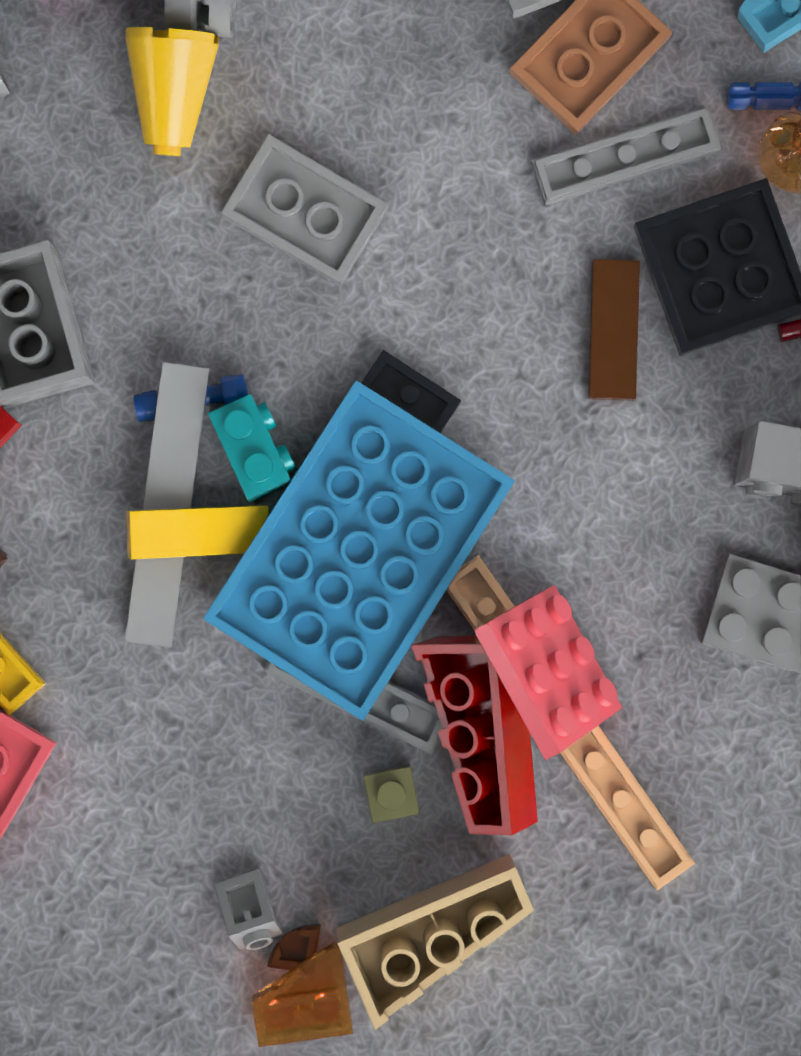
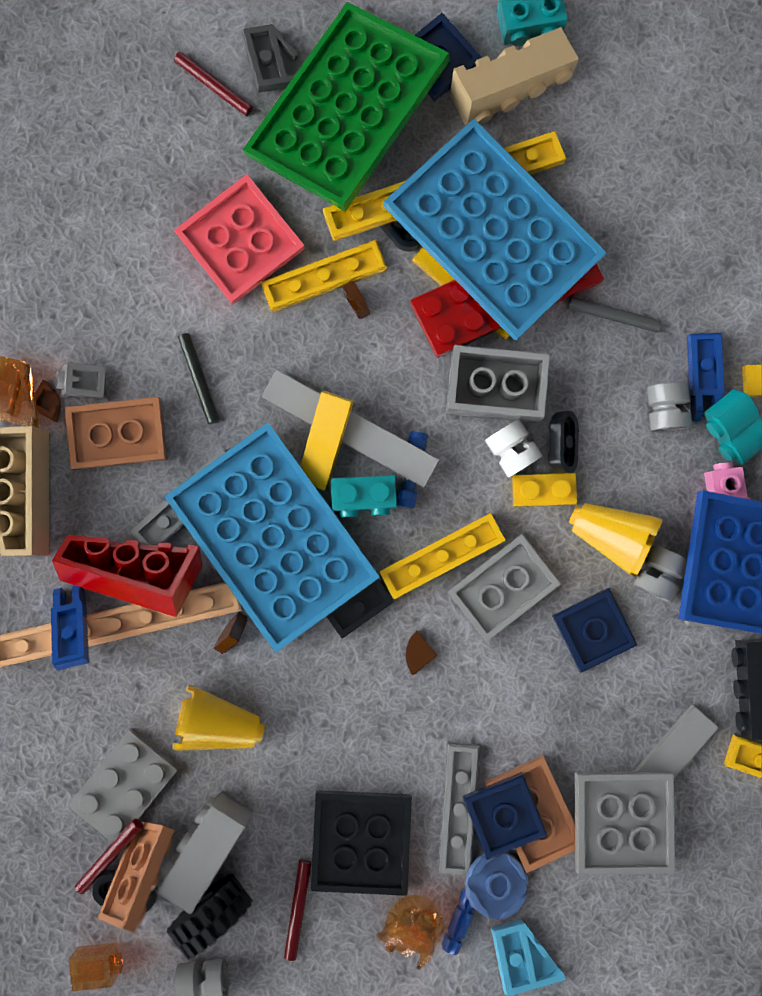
camera: 110 degrees right, 0 degrees up
(71, 204) = (563, 442): none -> black plate
(90, 272) = (513, 436): none -> white wheel
(148, 207) = (544, 490): none -> yellow plate
(179, 748) = (198, 378): none -> pearl dark grey bar
(294, 310) = (442, 556): none -> yellow plate
(302, 830) = (115, 433): none -> nougat plate
(313, 67) = (594, 630): none -> dark blue tile
(391, 793) = (114, 496): olive brick -> none
(439, 291) = (418, 653): none -> reddish brown tile
(515, 555) = (231, 634): none -> reddish brown tile
(549, 671) = (144, 625): coral plate -> none
(598, 775) = (69, 629): none -> blue hinge
(608, 89) = (504, 815): none -> dark blue tile
(614, 330) = (349, 754): reddish brown tile -> none
(645, 527) = (214, 723): none -> yellow cone
(704, 66) = (496, 886): none -> medium blue tile

